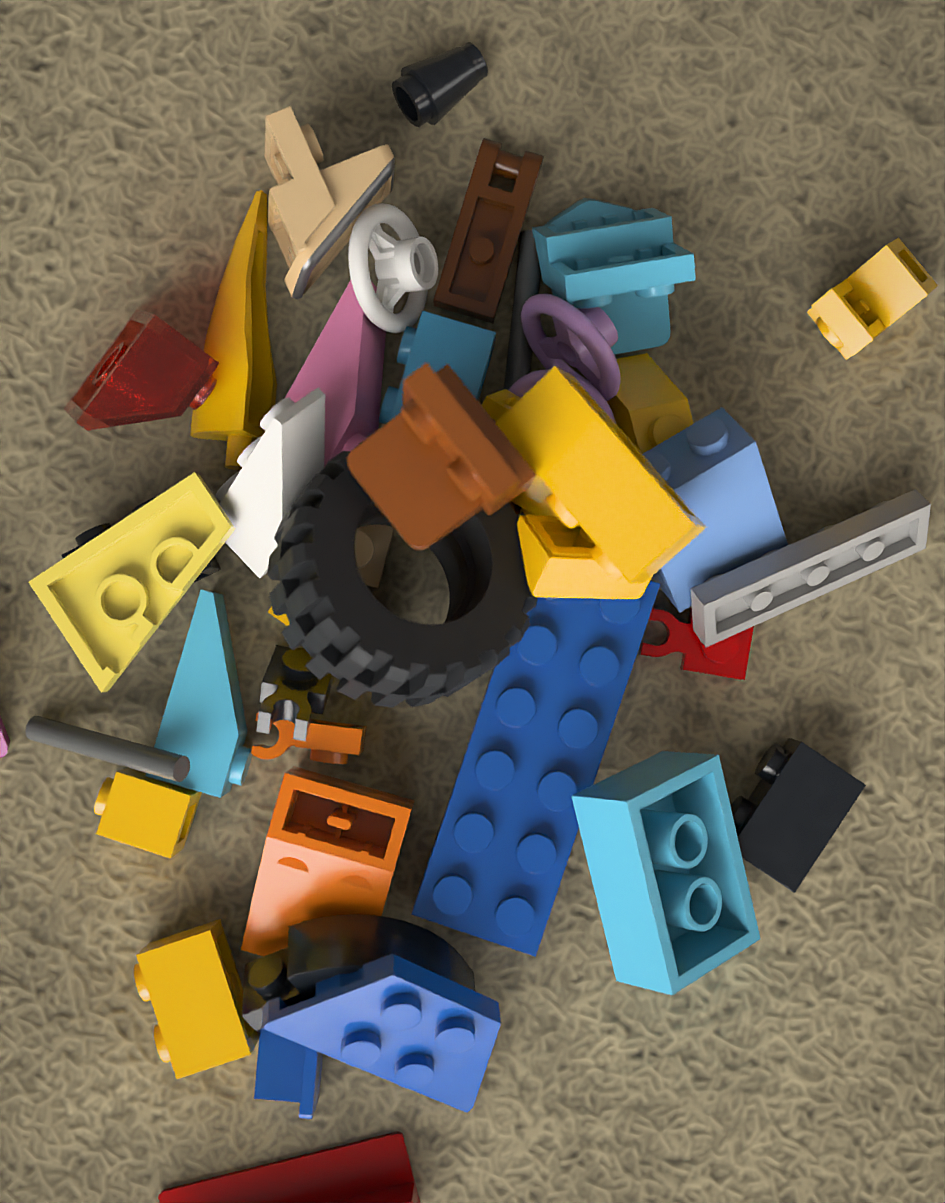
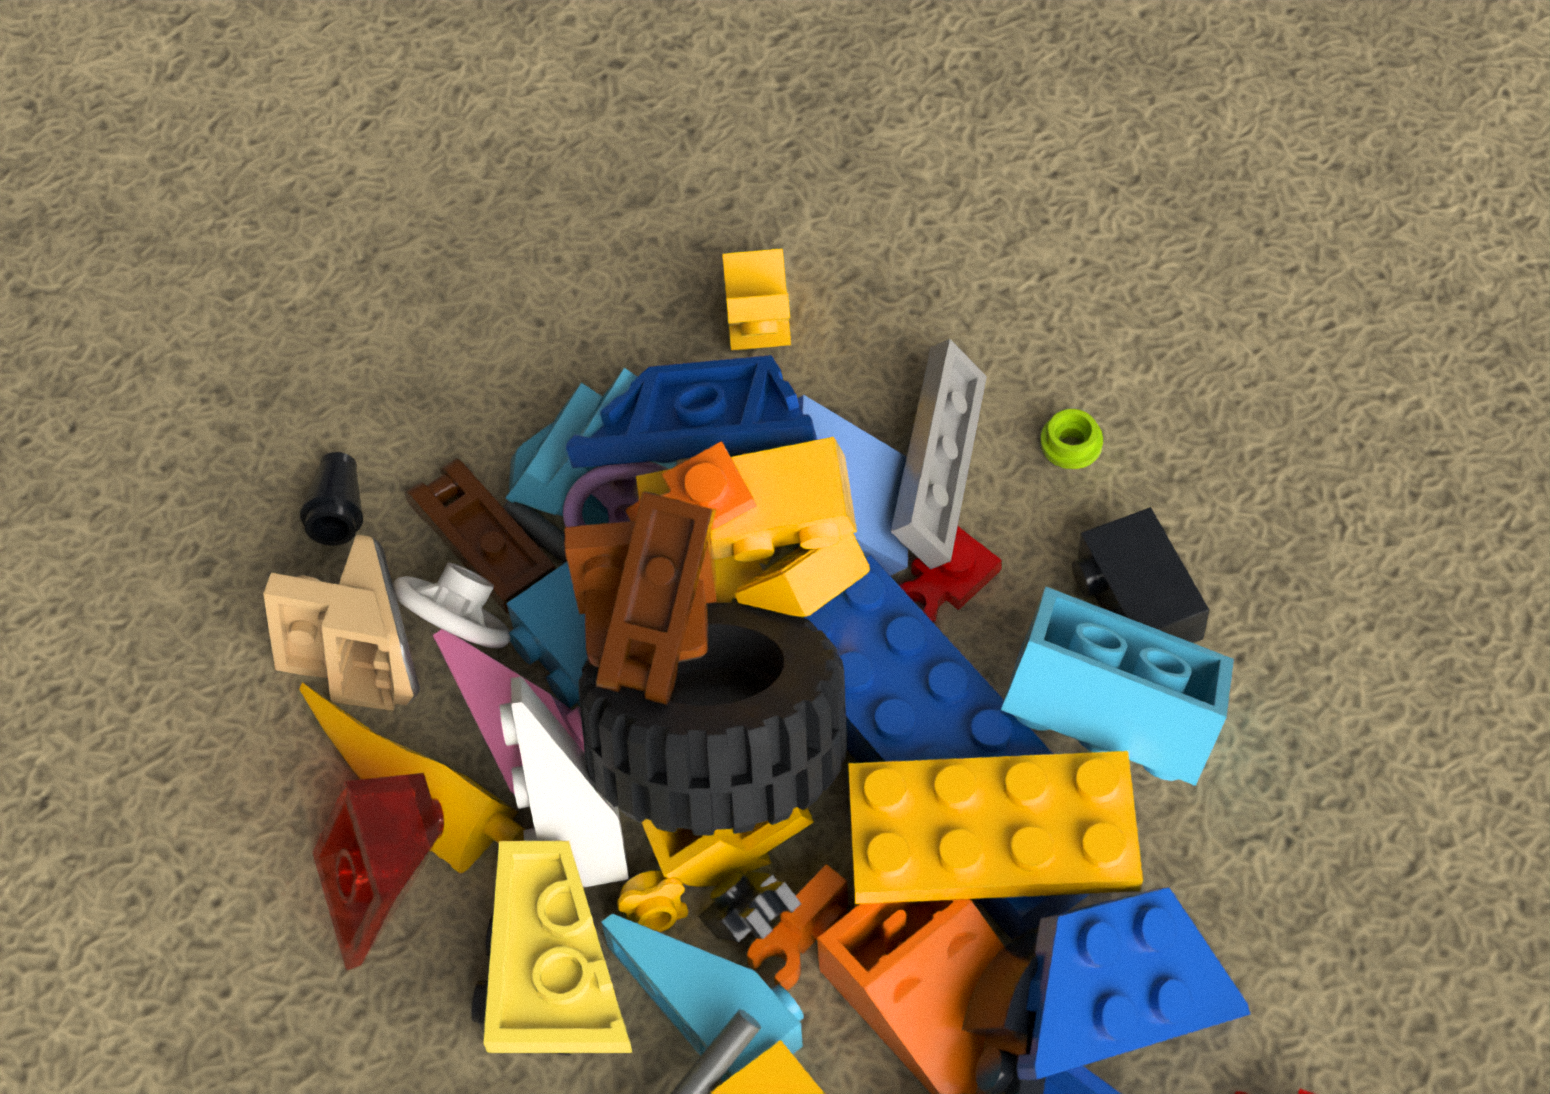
camera: 50 degrees left, 30 degrees down
(252, 607) = (653, 900): none -> yellow plate
(418, 489) = (656, 594): none -> reddish brown plate
(463, 855) = (994, 827): none -> yellow plate
(565, 442) = (708, 481): none -> orange plate
(676, 362) = (693, 406): none -> blue wing
(925, 662) = (1071, 424): none -> lime plate

